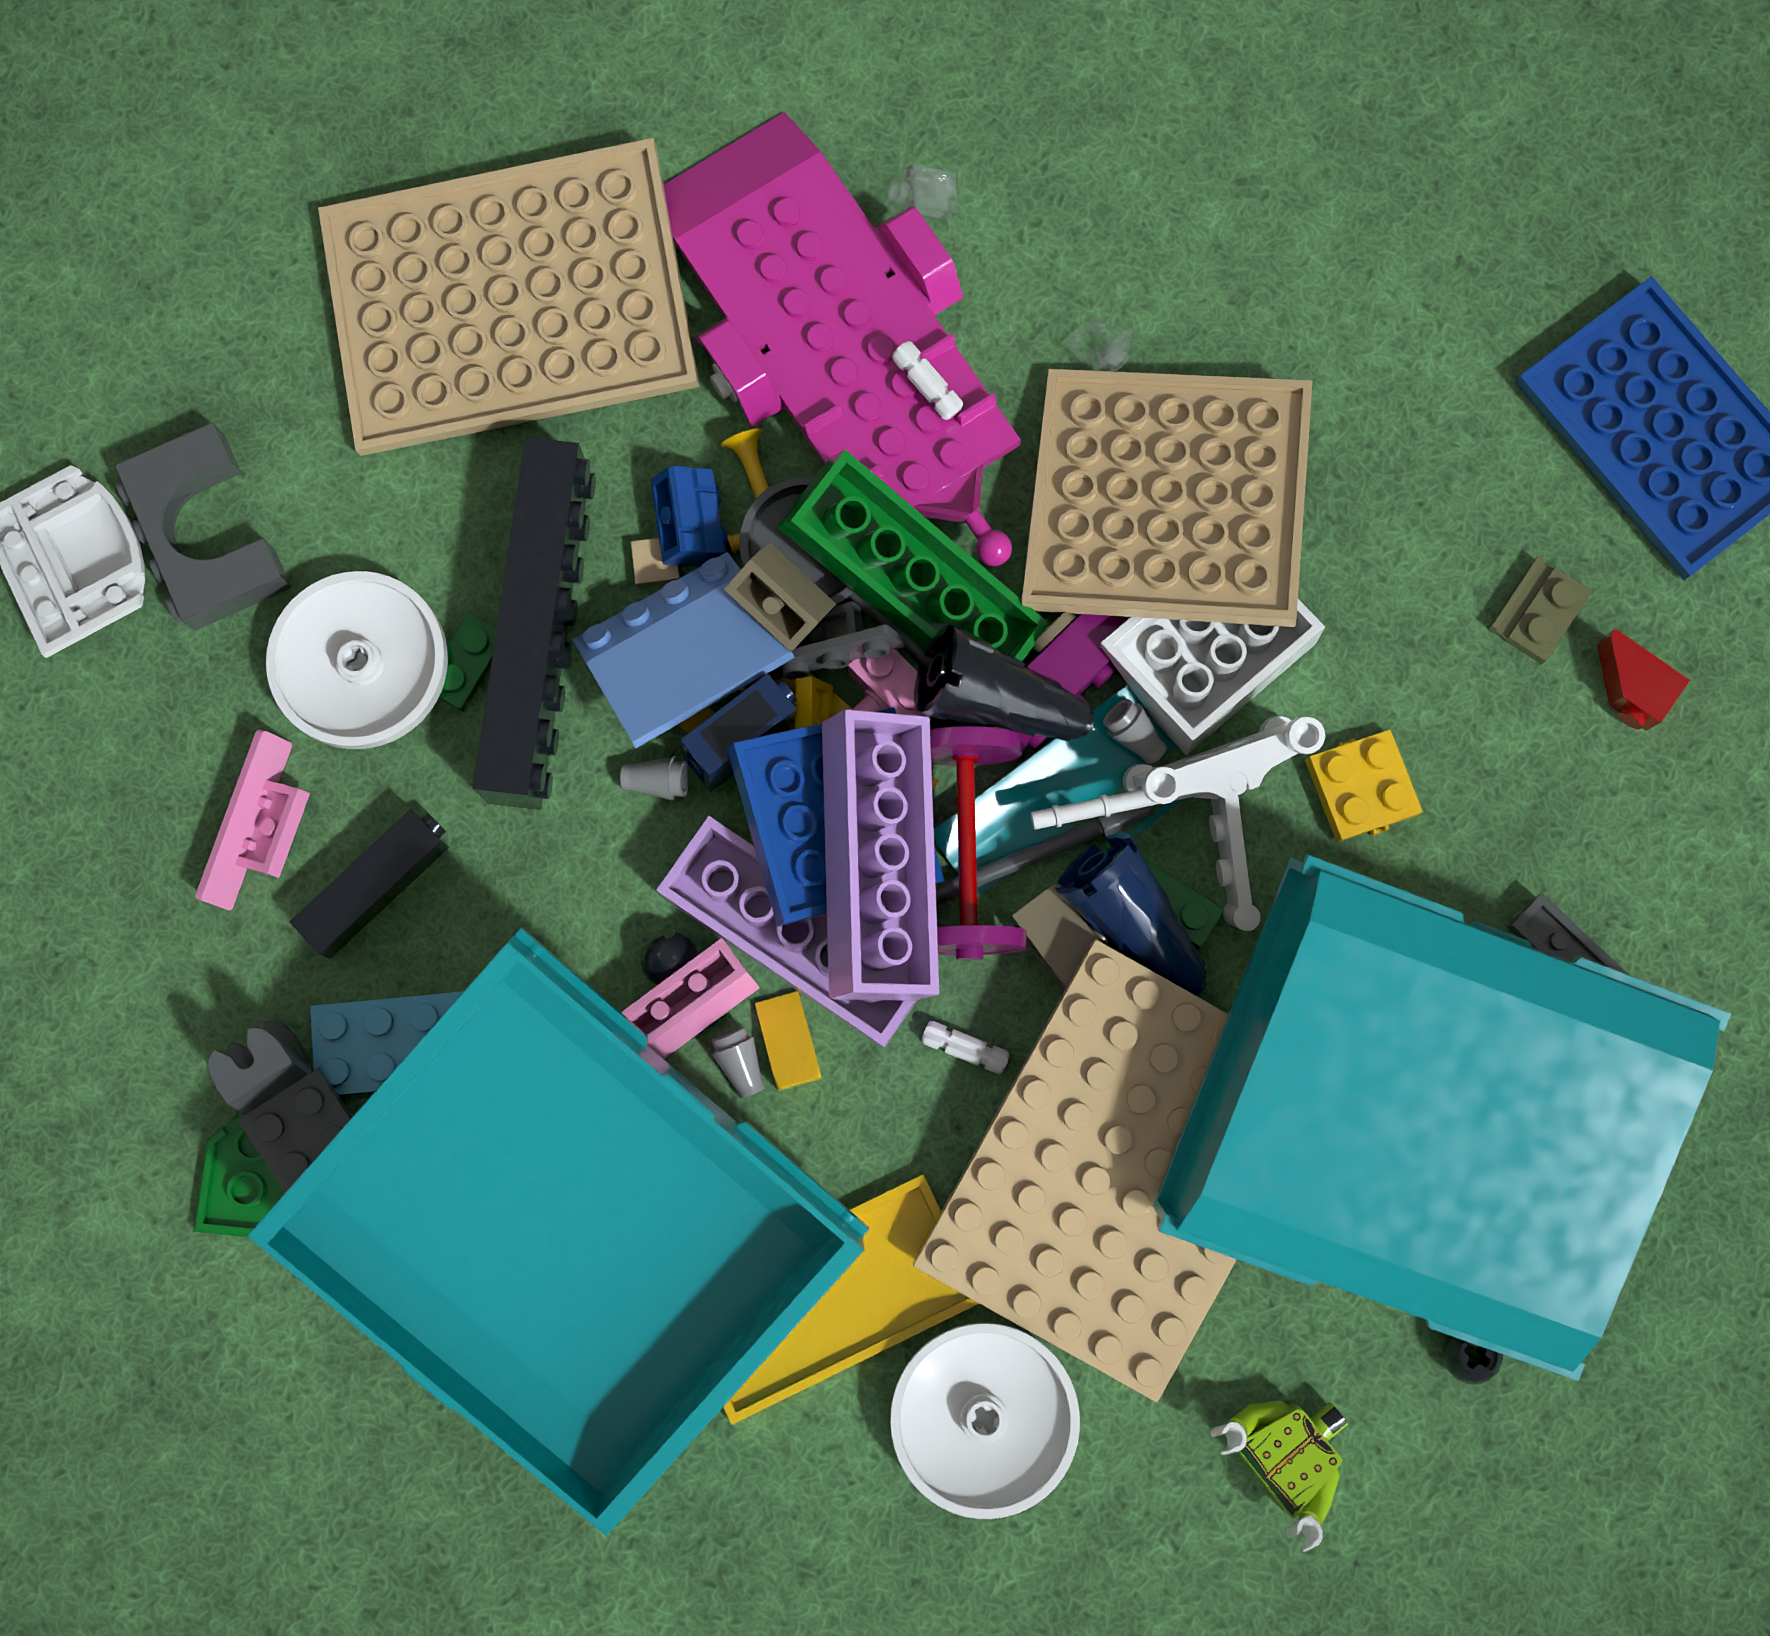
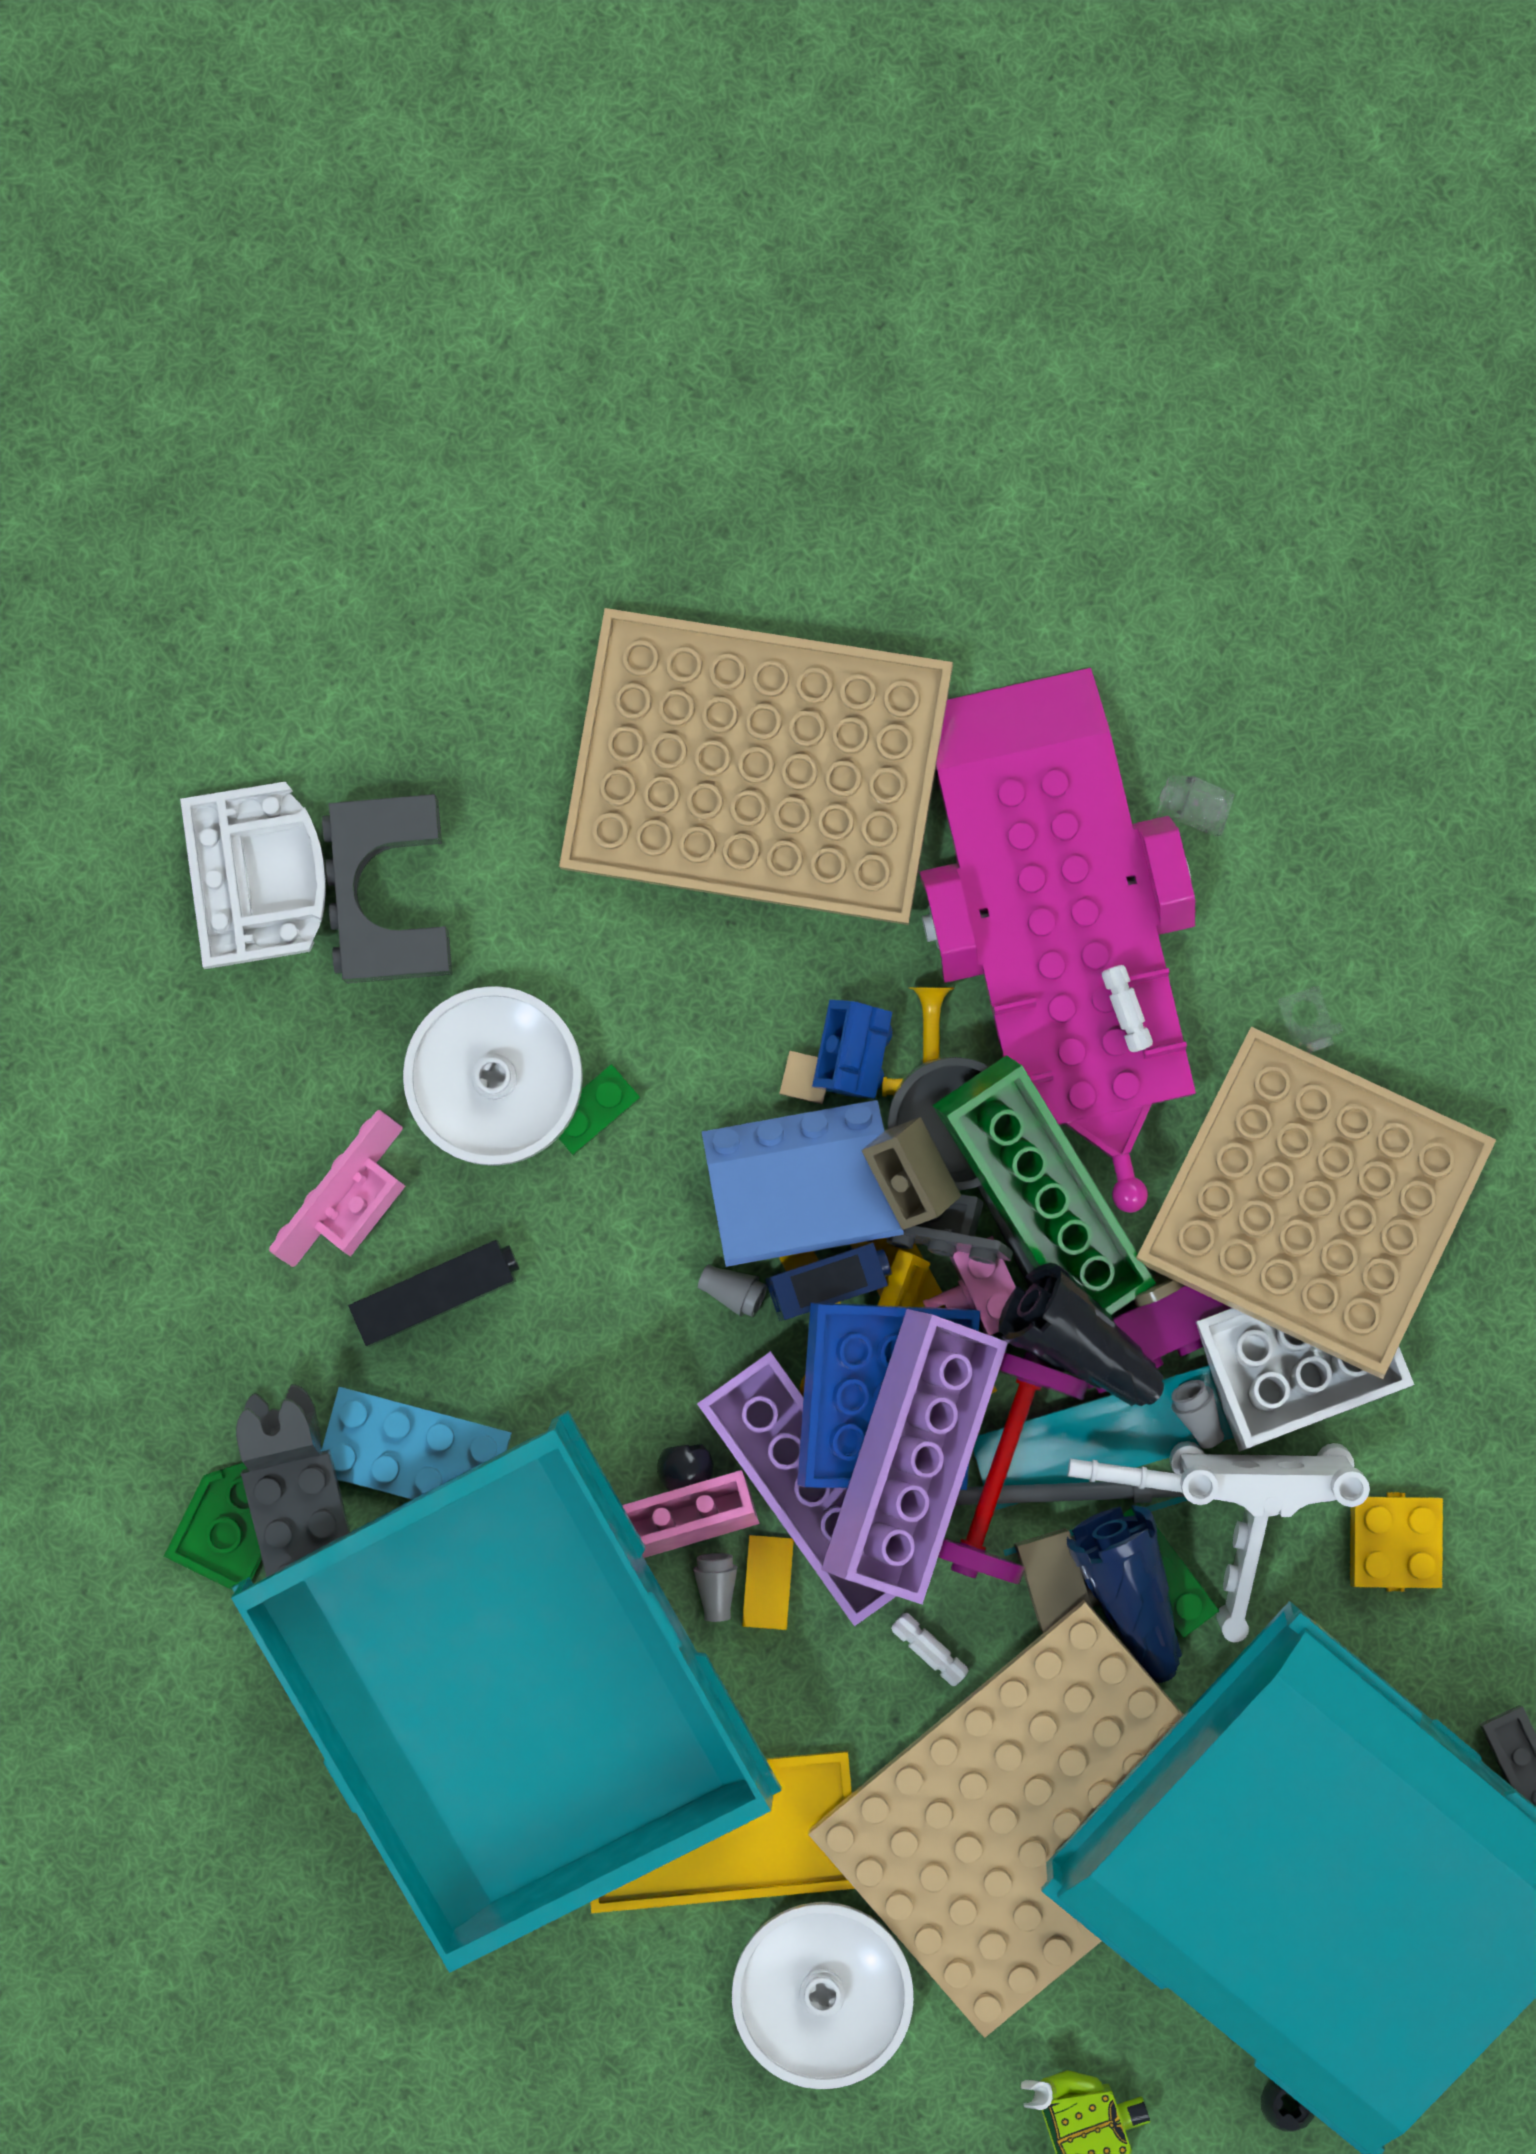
camera: 20 degrees right, 5 degrees up
(534, 625) = (670, 1104): black brick -> none

